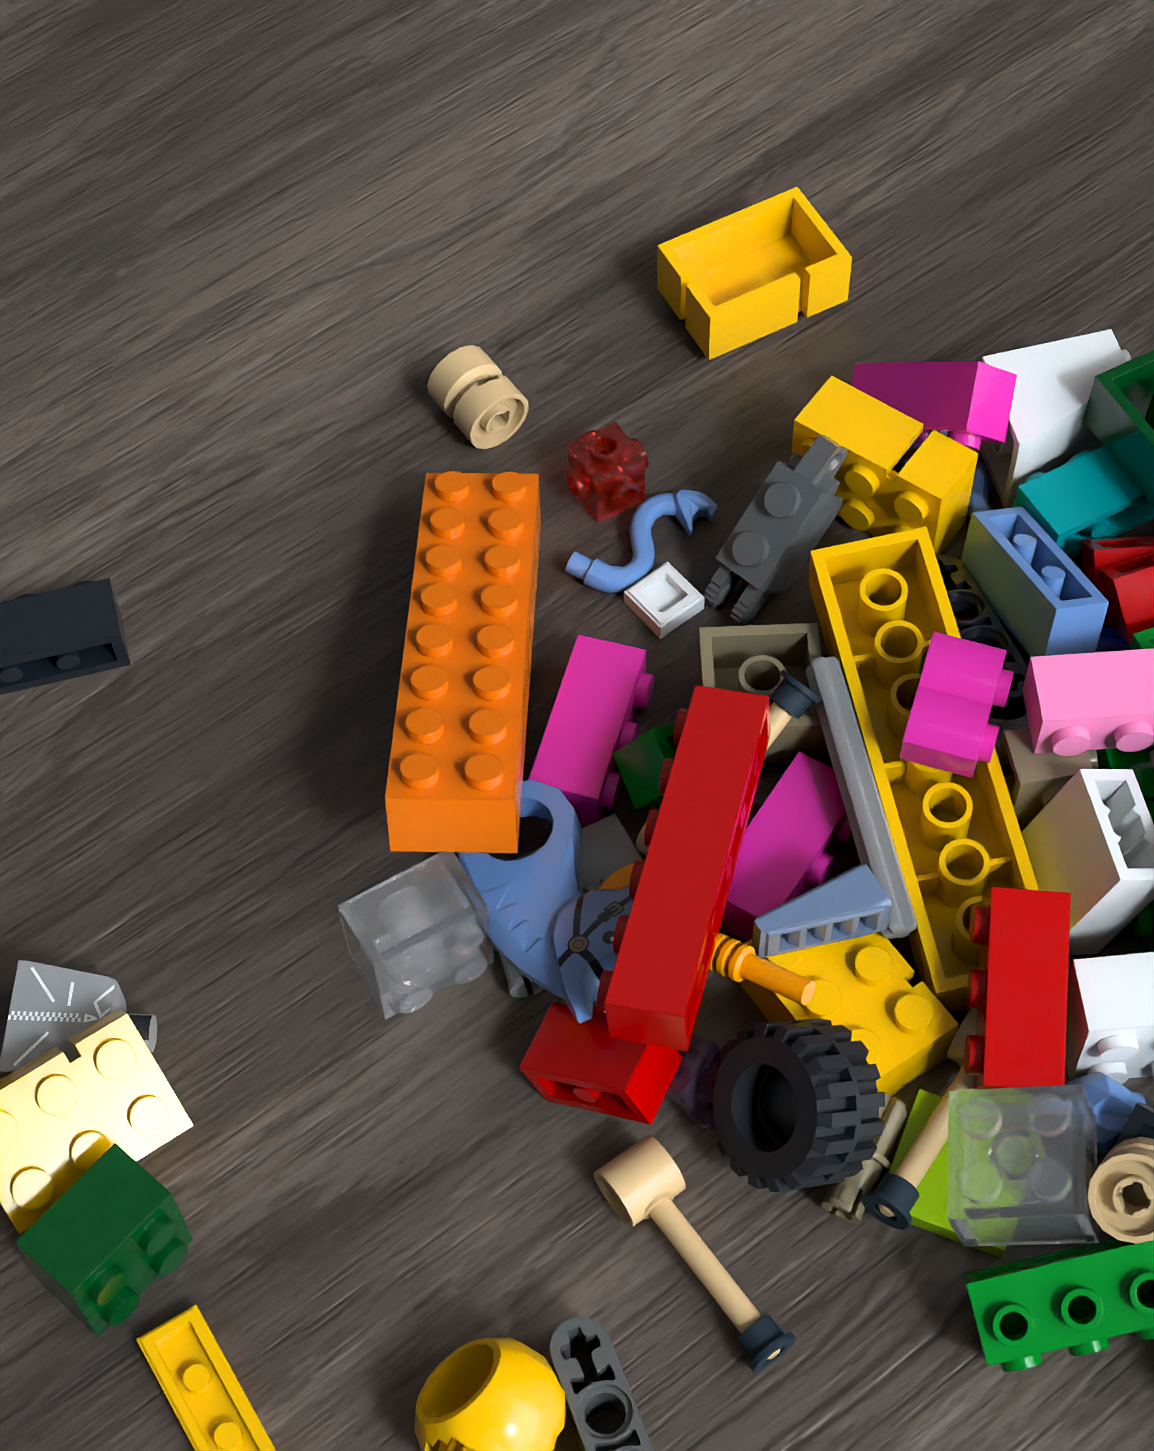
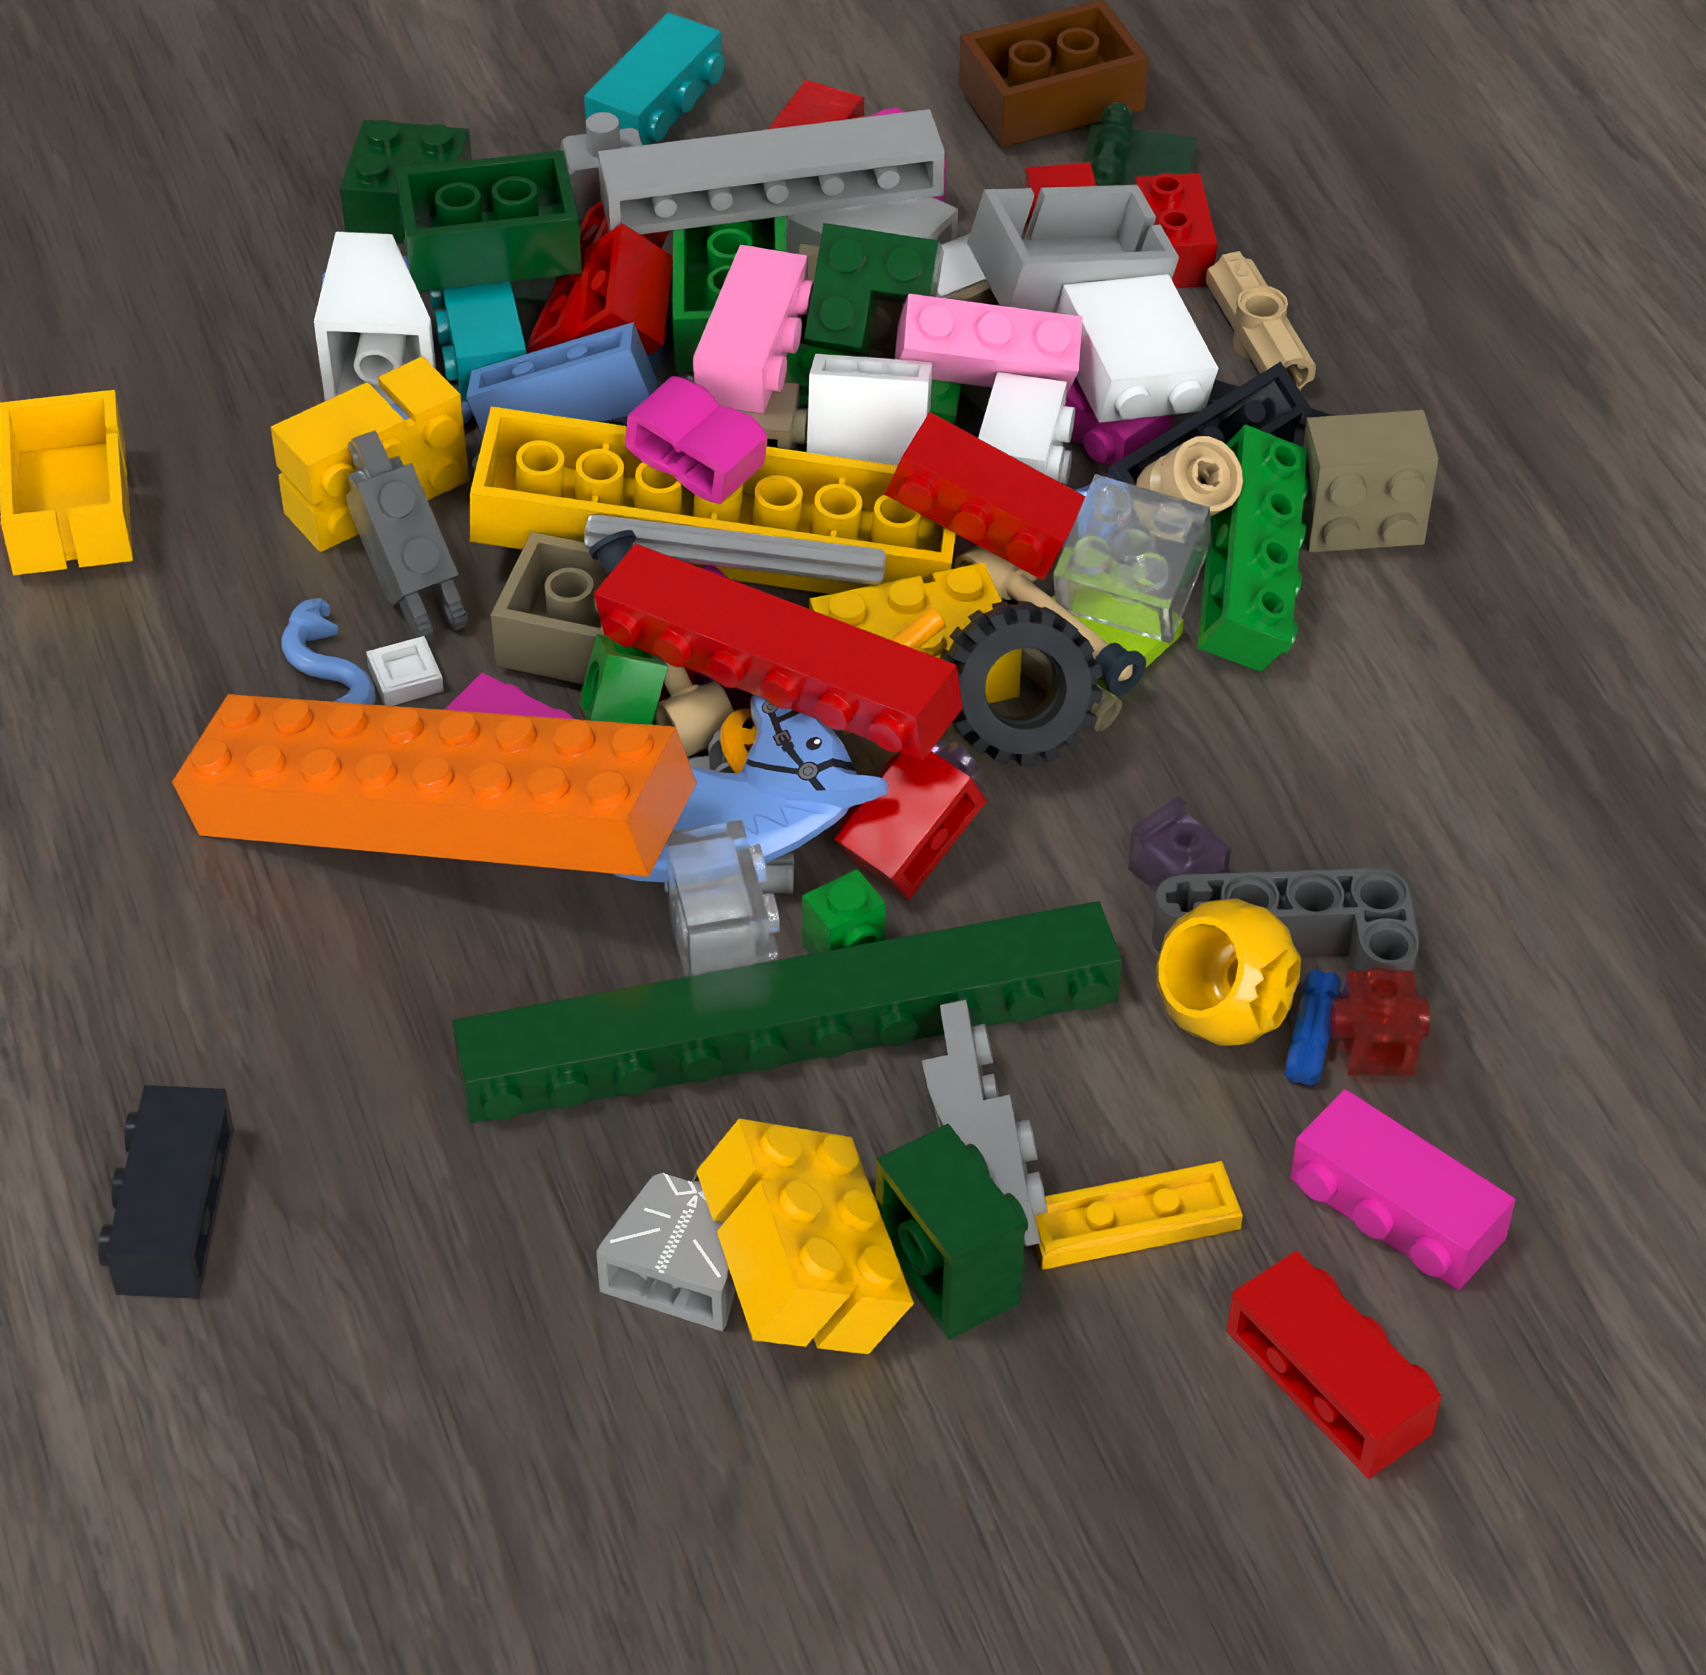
camera: 75 degrees left, 10 degrees down
(228, 1245) = (981, 1115): none -> light grey slope
(361, 1052) = (783, 1011): none -> dark green brick
(463, 1050) = (842, 914): none -> green brick
(477, 397) = (78, 736): tan wheel -> none
(606, 471) = (237, 656): clear red brick -> none
(641, 1187) = (1037, 837): tan piece -> none
(664, 1362) = (1175, 845): none -> clear purple brick
(830, 913) = (857, 577): sand blue slope -> none
(954, 398) = (347, 353): dark pink brick -> none

